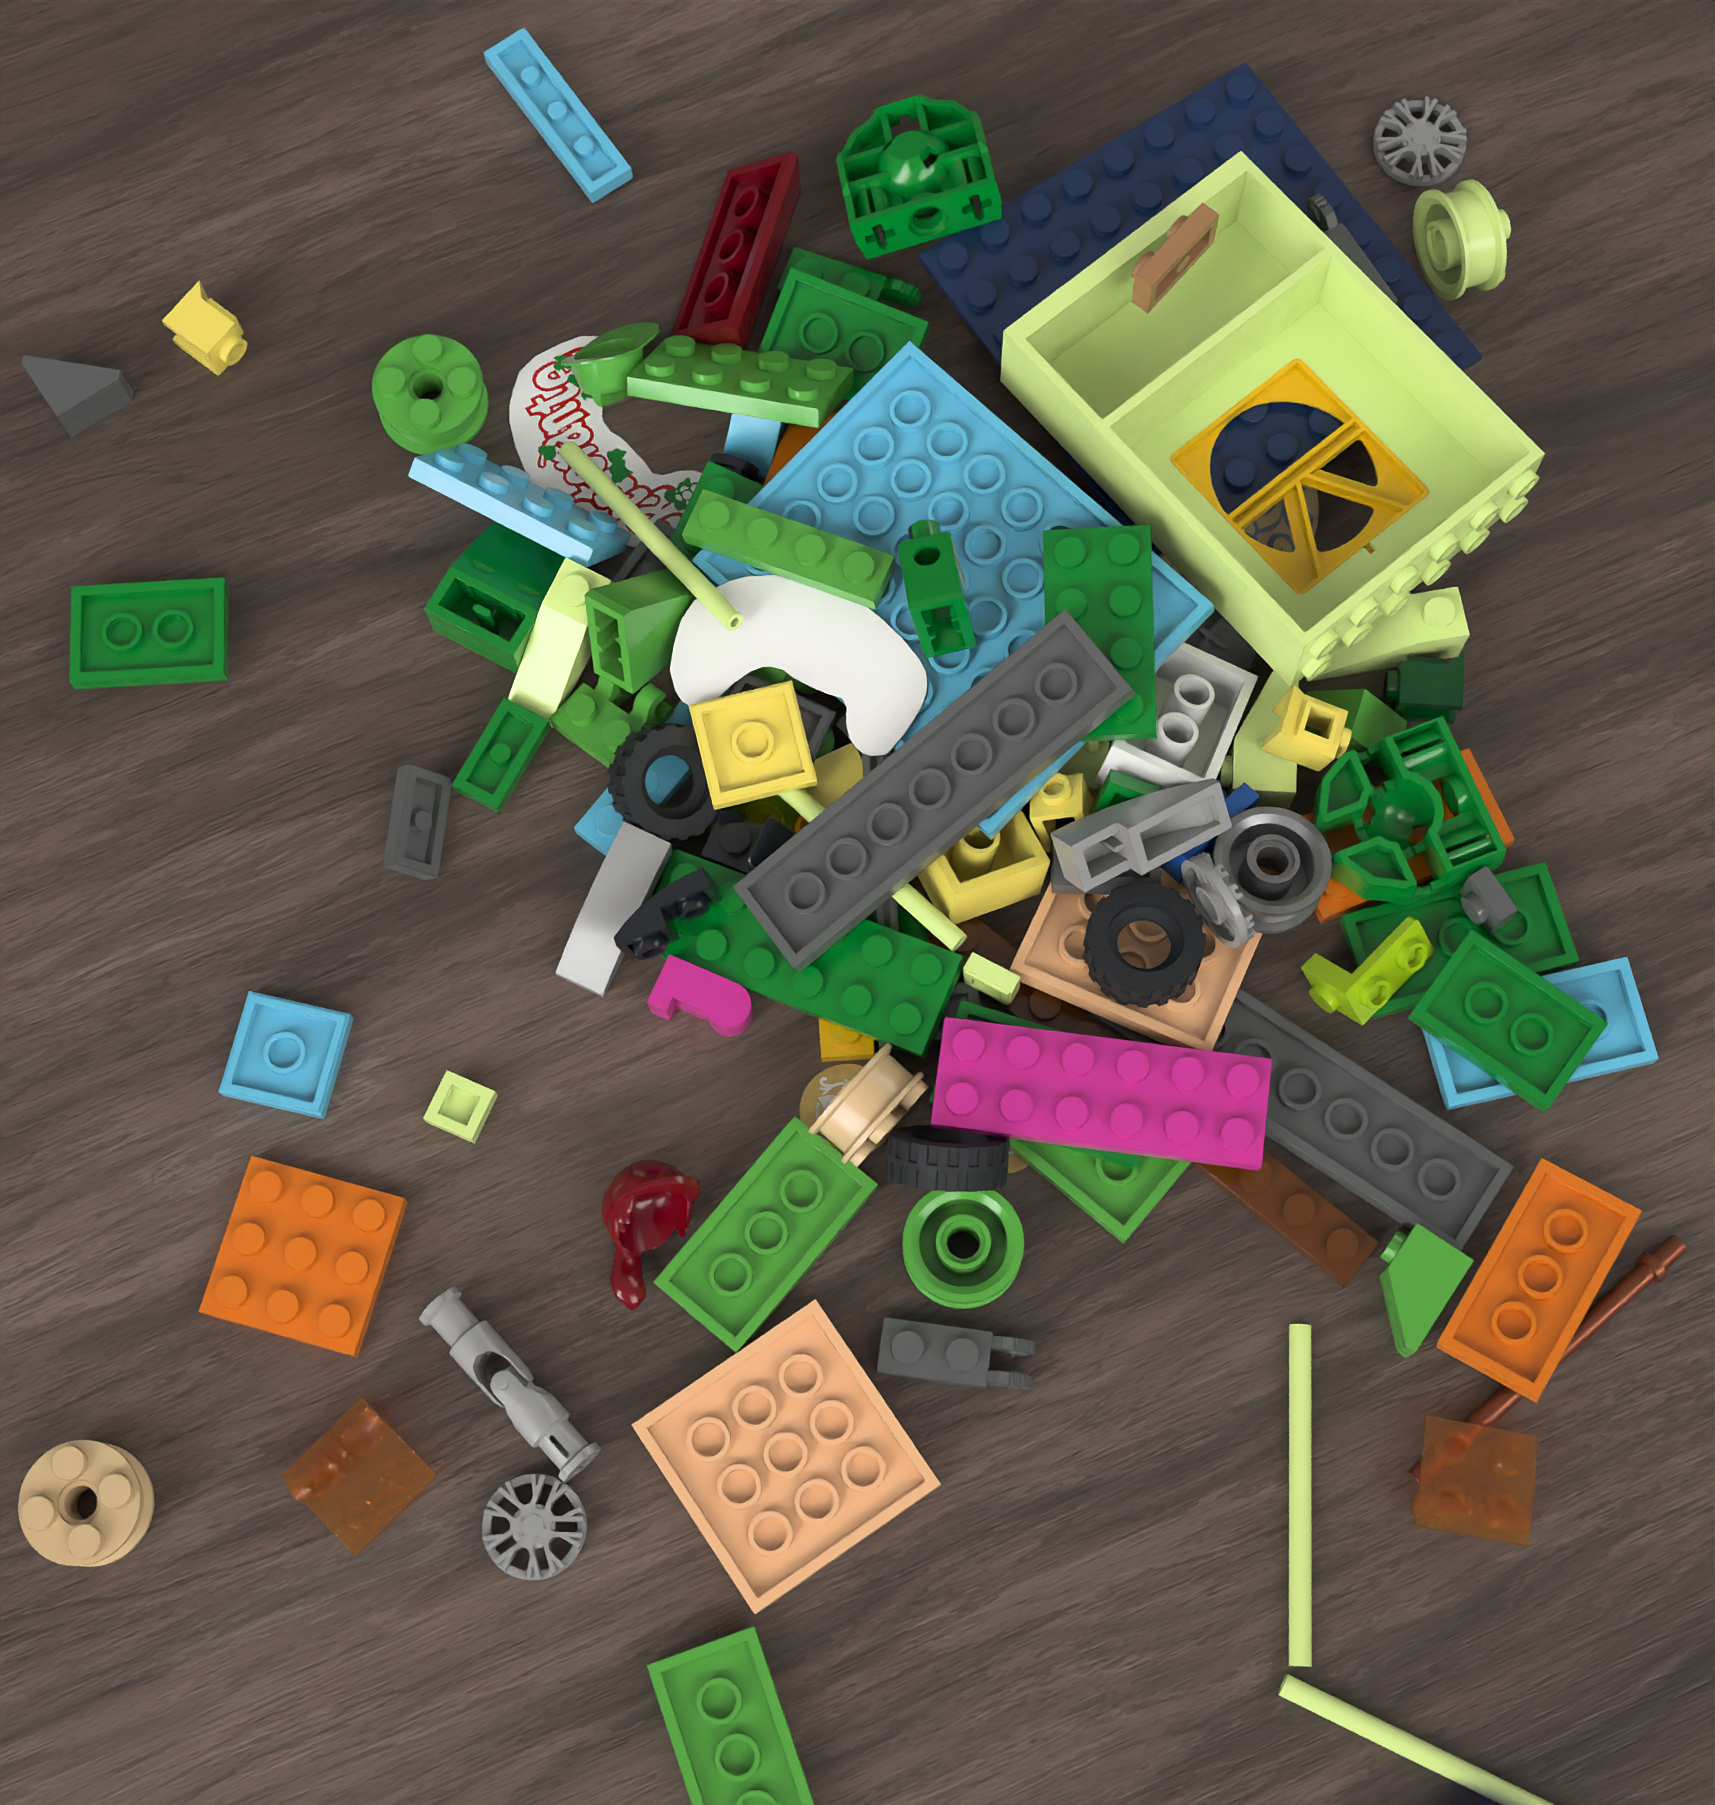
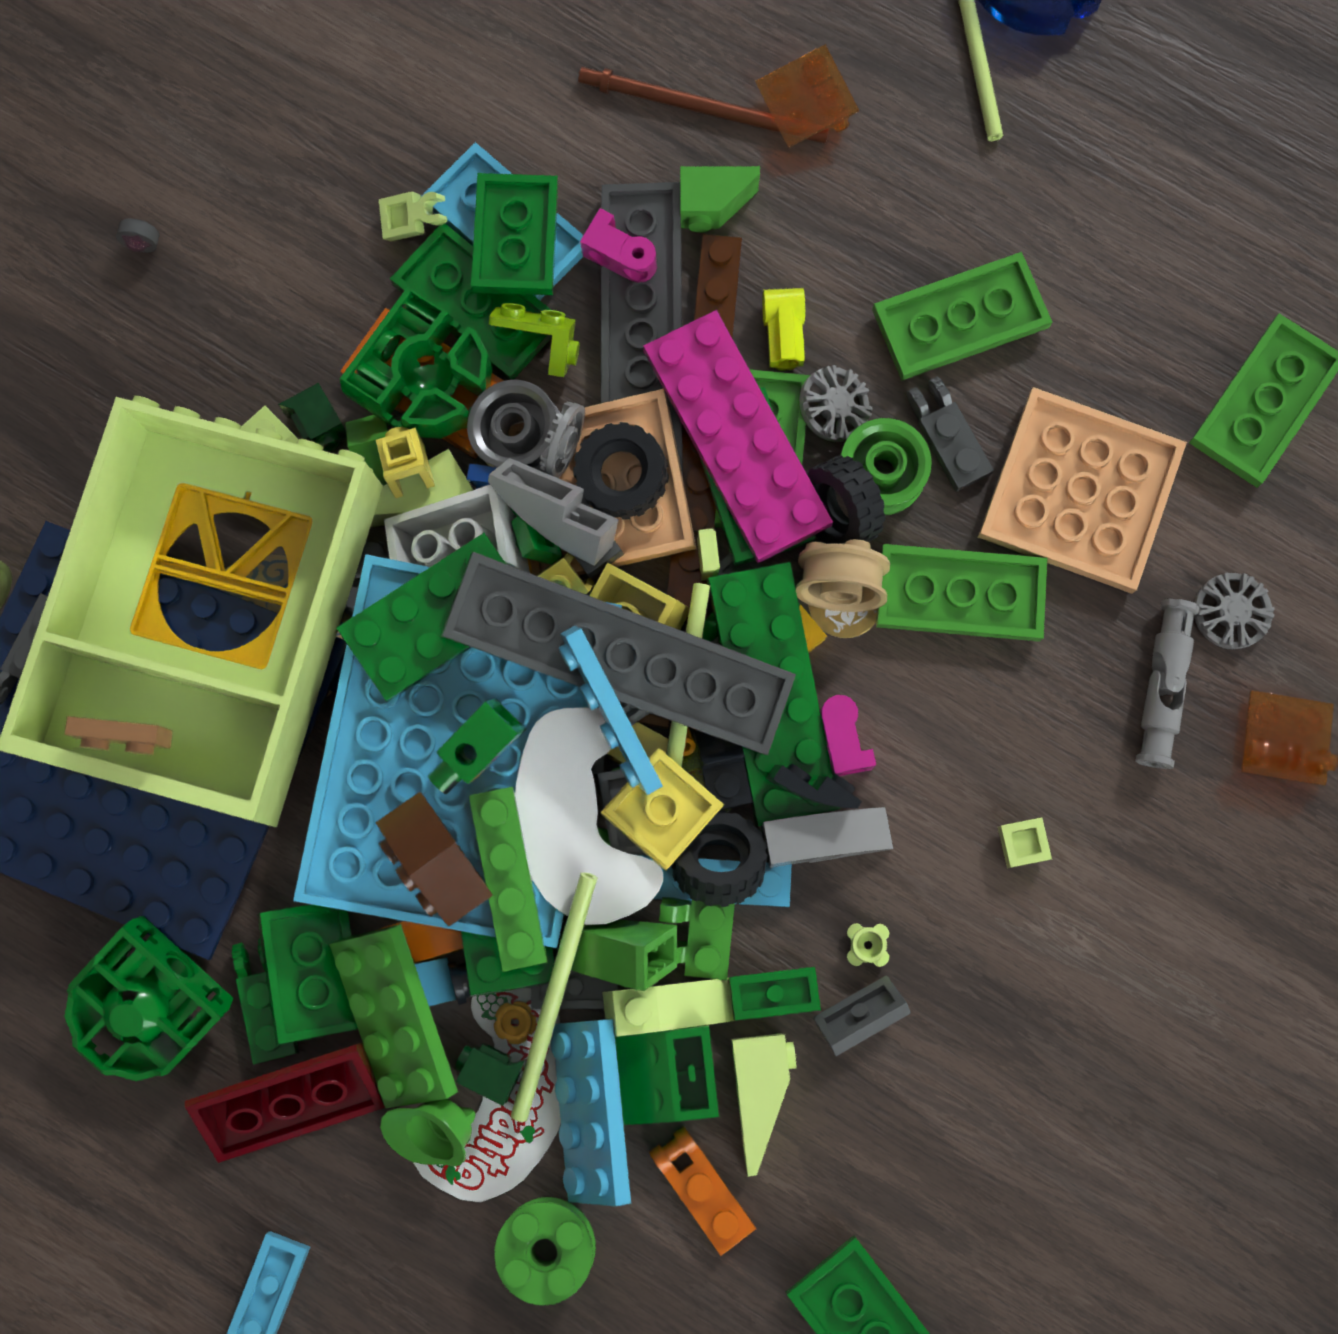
camera: 130 degrees left, 5 degrees up
(286, 1055) = (1073, 987): medium azure tile -> none
(304, 1256) = (1187, 875): orange plate -> none
(372, 570) = (703, 1192): none -> orange plate
(435, 687) = (761, 1084): none -> yellowish green slope
(478, 865) = (877, 953): none -> yellowish green plate
(627, 442) = (488, 1072): none -> dark green window
(641, 1214) = (1007, 677): dark red piece -> none
(654, 486) = (503, 1025): none -> pearl gold plate
(850, 473) = (431, 861): none -> reddish brown brick
(860, 732) = (599, 693): none -> medium azure plate
(1074, 1248) = (834, 402): none -> light grey wheel
(1082, 1471) = (961, 316): none -> bright green plate
(1217, 1264) = (784, 320): none -> neon yellow piece
(1300, 1497) = (880, 192): yellowish green piece -> none
(1412, 1119) = (618, 251): none -> dark pink leg
(1486, 901) = (445, 287): dark grey plate -> none
(1538, 1279) = (661, 130): orange plate -> none
(1611, 929) = (405, 214): none -> yellowish green plate

